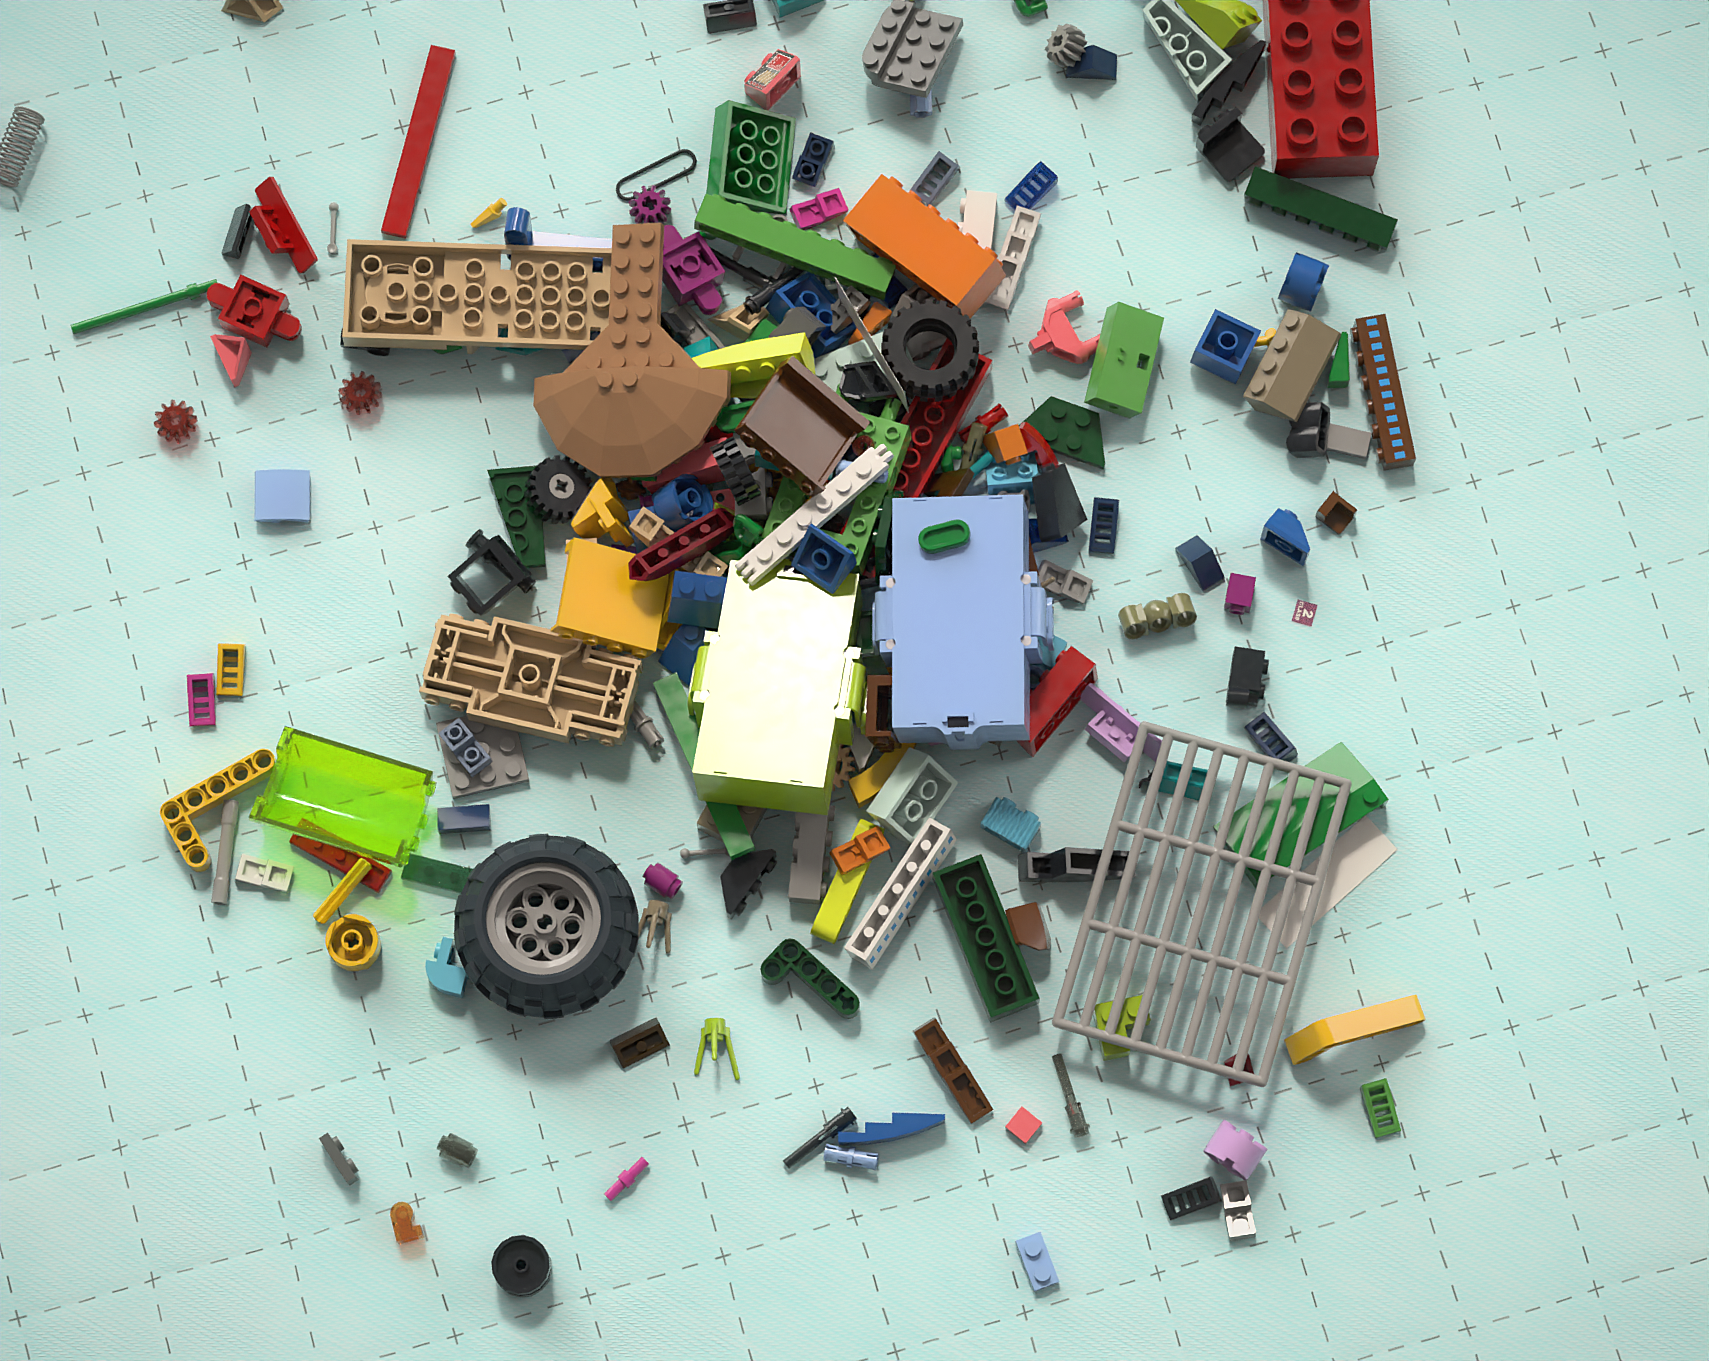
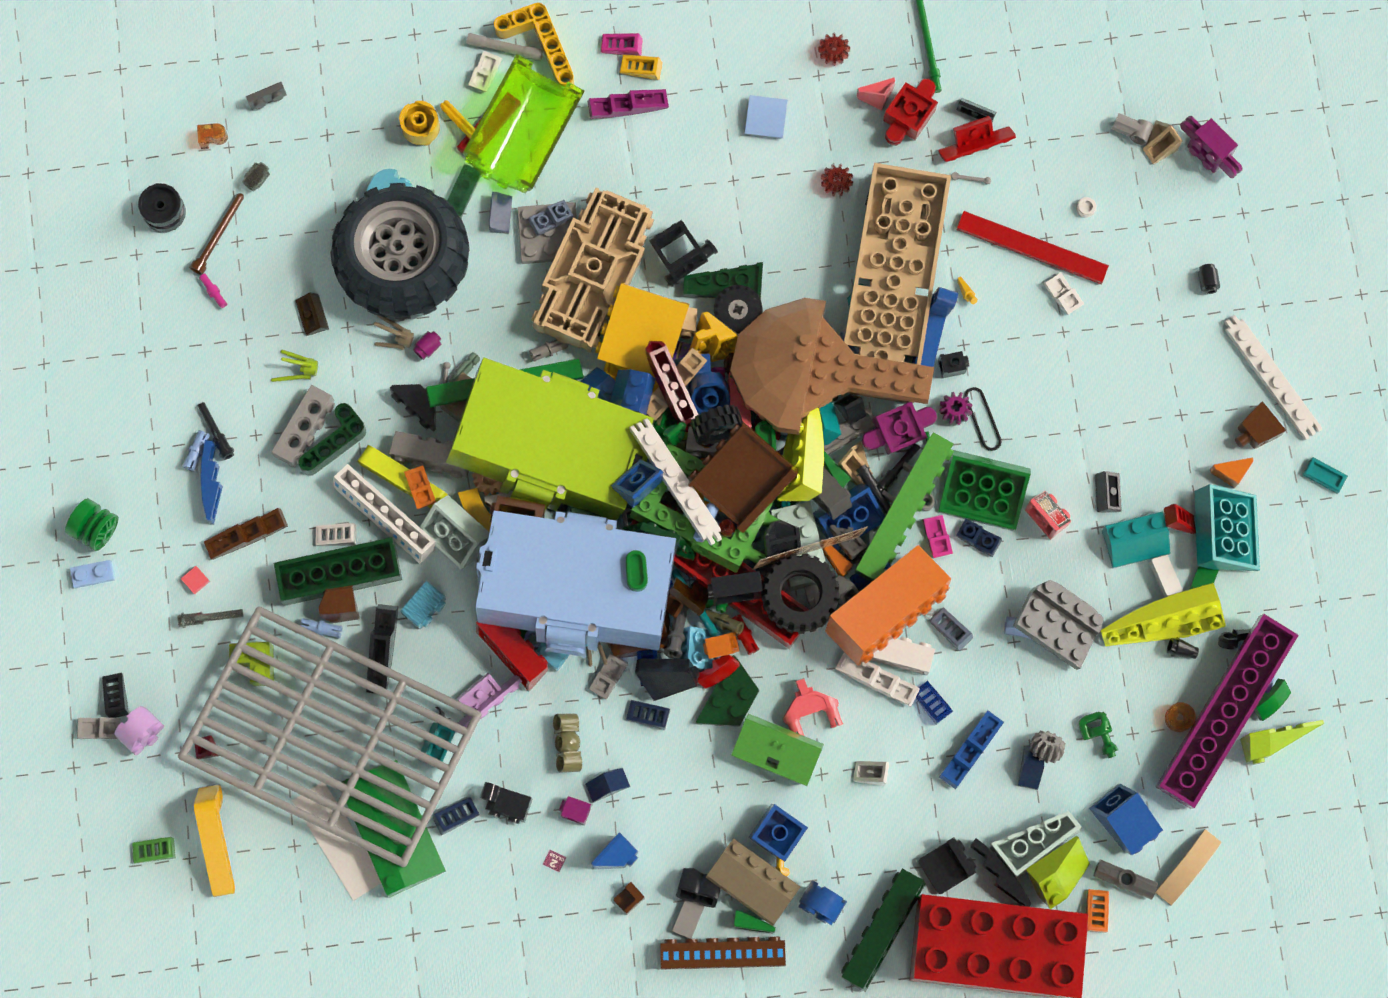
camera: 95 degrees right, 0 degrees up
(240, 30) = (1137, 130): none -> light grey piece
(287, 676) = (628, 104): none -> magenta slope
(354, 82) = (1086, 207): none -> white tile
(477, 96) = (1063, 294): none -> white slope
(592, 225) = (948, 369): none -> black brick
(592, 1203) = (199, 265): none -> reddish brown piece
(686, 829) = (465, 367): none -> sand green axle
(831, 1042) = (313, 398): none -> light grey brick
(934, 931) = (336, 542): none -> white slope
(936, 428) = (735, 588): none -> black window
(976, 1266) = (91, 524): none -> green wheel
(1060, 950) = (322, 628): none -> light blue pin
(1082, 136) = (971, 749): none -> blue slope
(1131, 246) = (871, 772): none -> white slope

